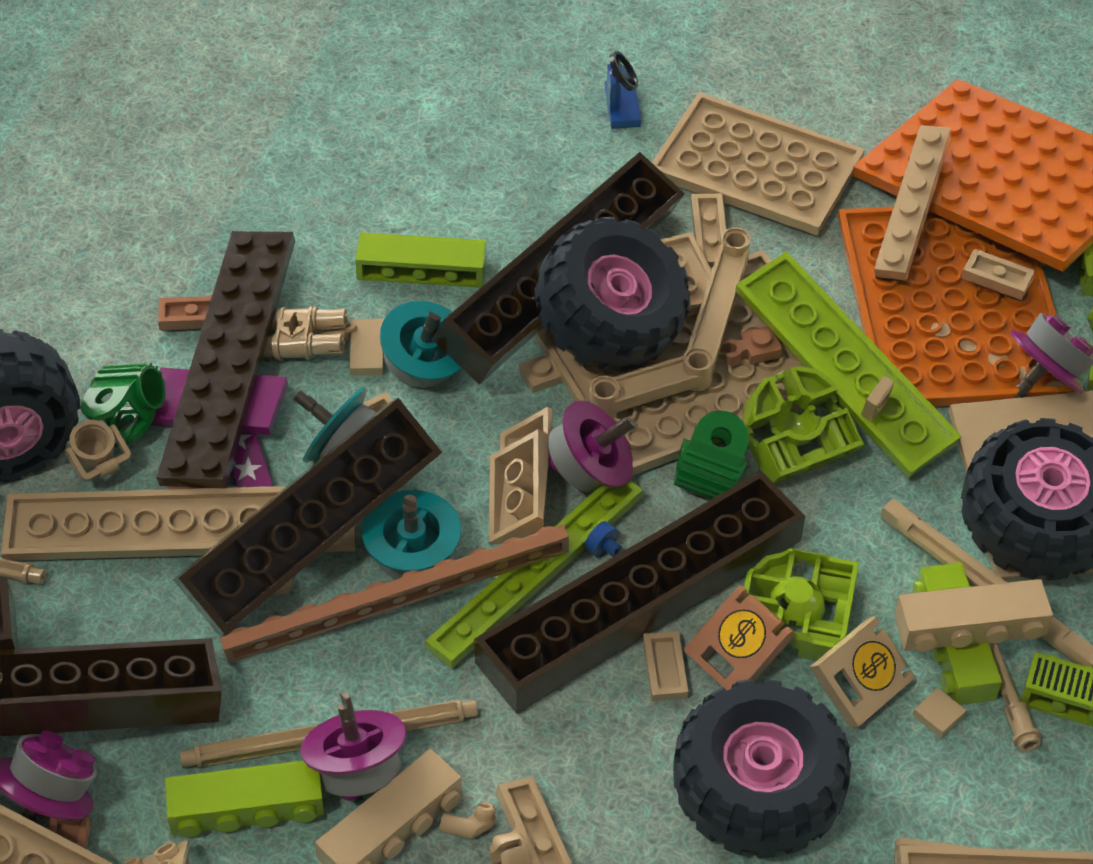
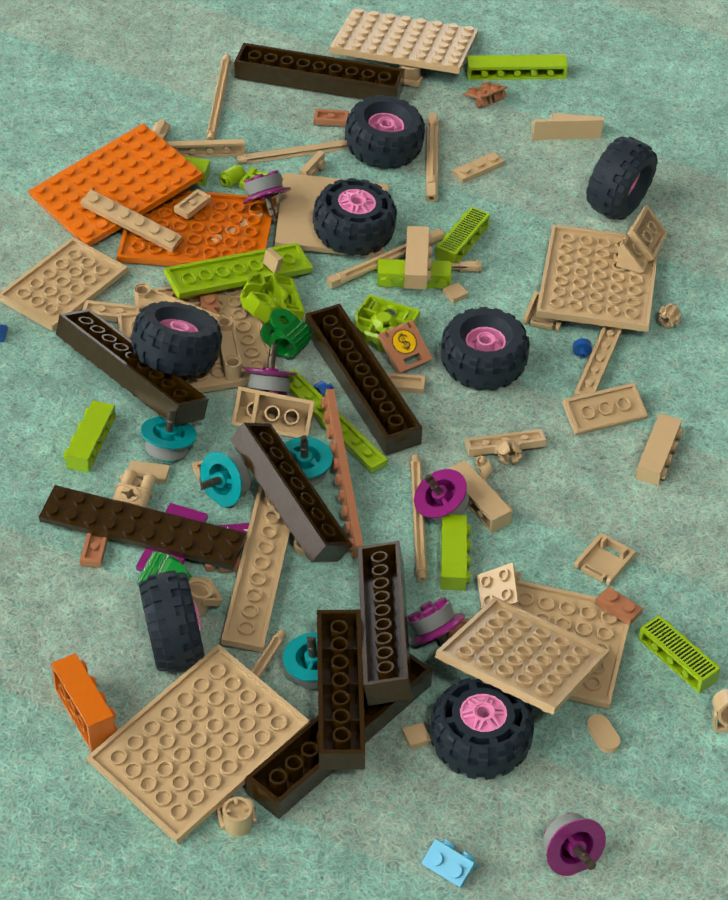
camera: 80 degrees left, 5 degrees down
(871, 668) = (430, 307): tan container -> none

